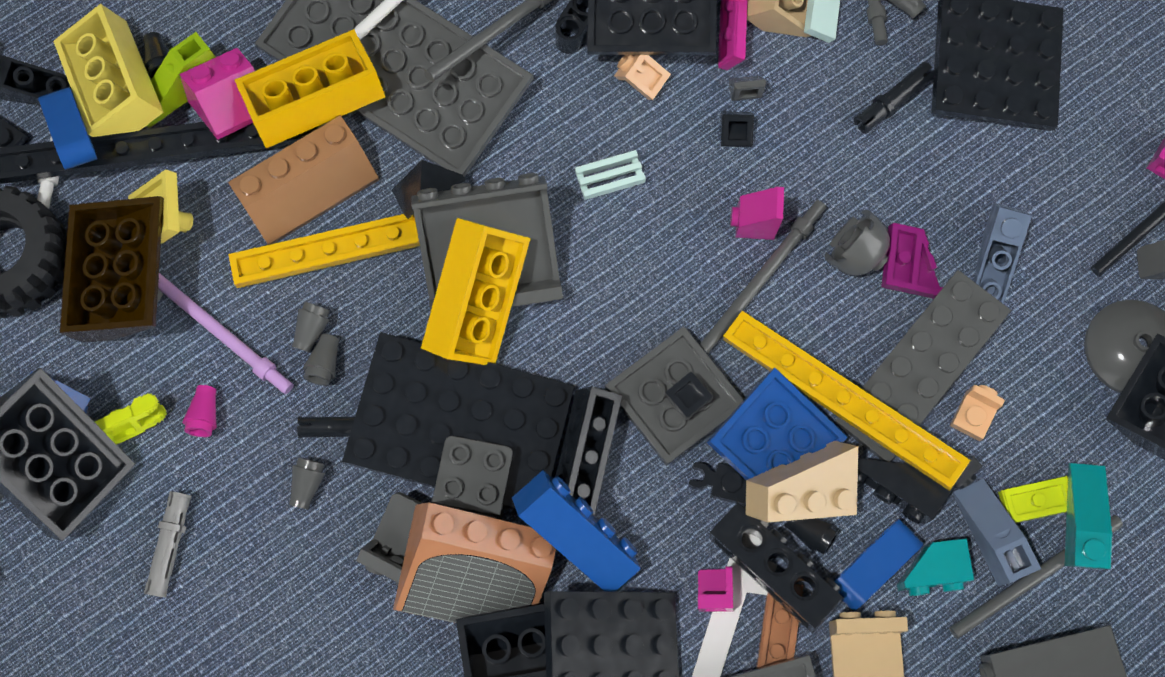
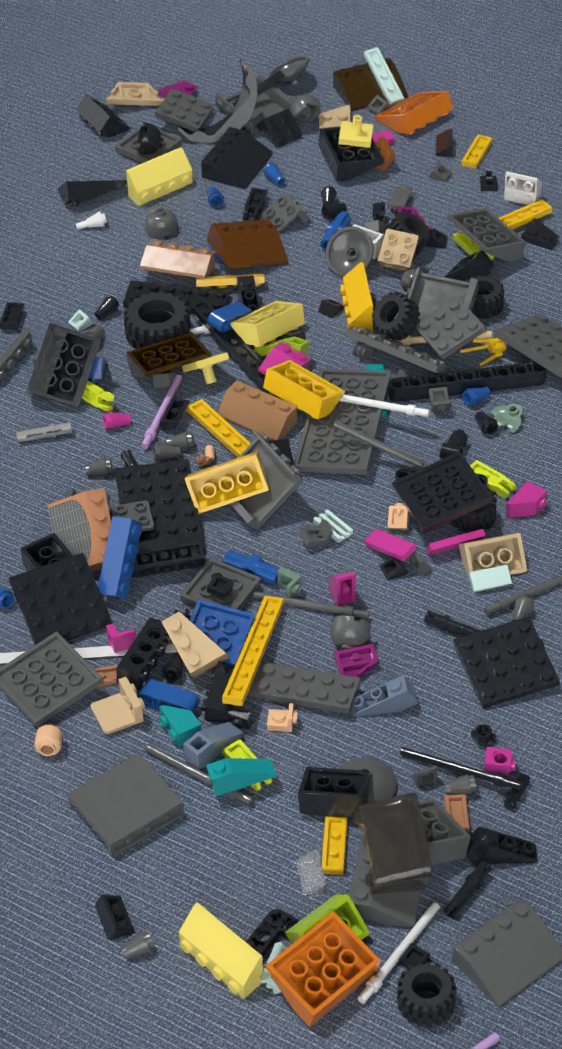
camera: 70 degrees right, 30 degrees down
(240, 310) = (173, 413): none -> black slope
(366, 298) = (206, 459): none -> arm
(626, 205) = (316, 535): none -> dark grey bracket
(650, 329) = (253, 565): none -> blue piece
(703, 285) = (290, 581): none -> sand green bracket
(704, 111) = (390, 544): none -> dark pink tile
(1115, 145) = (481, 730): none -> black plate

